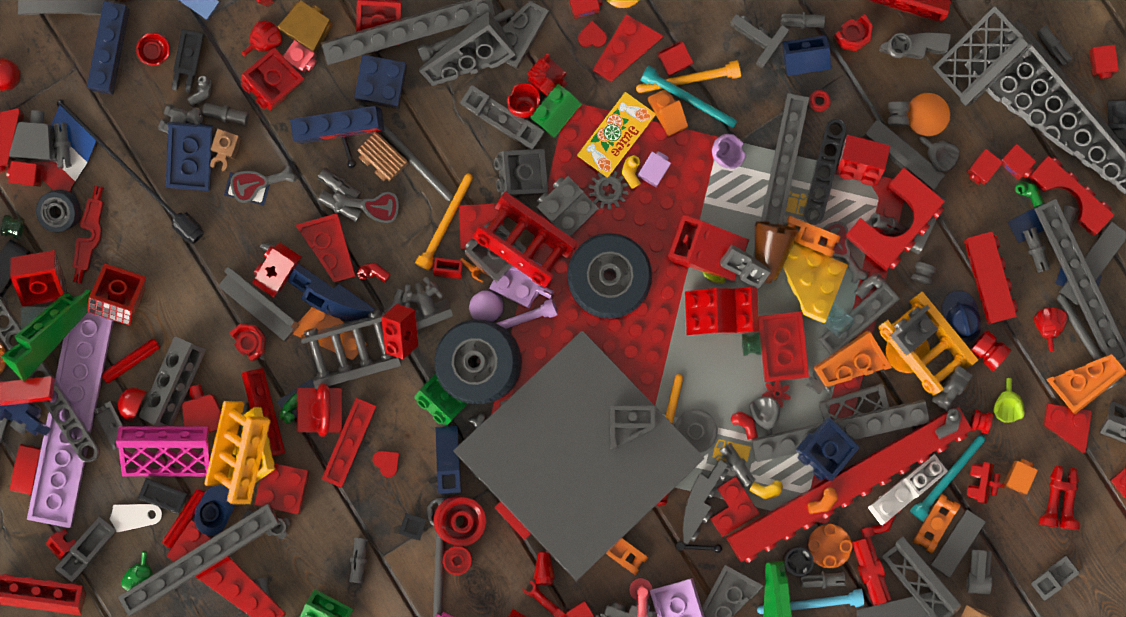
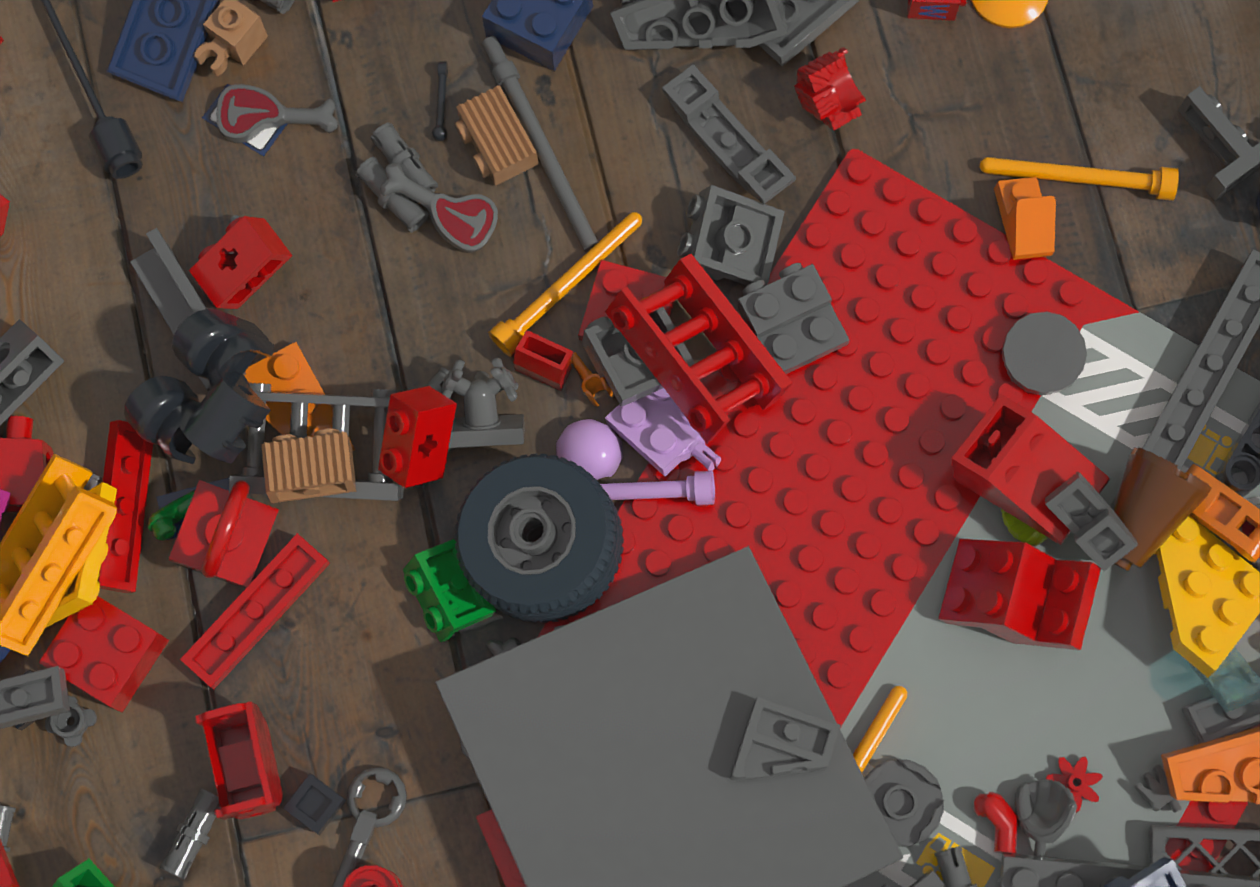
camera: 20 degrees right, 10 degrees down
(249, 340) = (144, 360): red hair -> none
(272, 360) = (170, 413): none -> black piece
(329, 245) = (349, 255): red wing -> none
(334, 302) = (319, 350): dark blue slope -> none
(337, 124) = (437, 54): dark blue brick -> none
(352, 364) = (308, 466): none -> medium nougat brick
(371, 519) = (242, 761): none -> red piece
(372, 270) = (410, 323): red arm -> none
(386, 462) = (311, 671): red tile -> none
(446, 516) = (427, 836): red wheel -> none
(447, 461) = (419, 705): dark blue slope -> none
(523, 100) = (776, 117): red hair -> none
(556, 110) = (827, 149): green brick -> none
(591, 36) = (930, 53): red tile -> none
(612, 198) = (874, 299): dark grey gear -> none
(613, 254) = (837, 423): black wheel -> none
(616, 134) = (920, 227): sticker -> none
(626, 46) = (986, 86): red wing -> none
(629, 170) = (925, 293): yellow arm -> none
(651, 76) = (1016, 148): teal piece -> none
(654, 168) = (972, 303): lavender brick -> none
(675, 58) = (1066, 135): red piece -> none
(698, 182) = (1044, 353): none -> dark grey tile
(728, 151) = (1115, 314): lavender hair -> none
(751, 344) = (1054, 674): clear green wheel -> none
(783, 347) = (1113, 700): red plate -> none

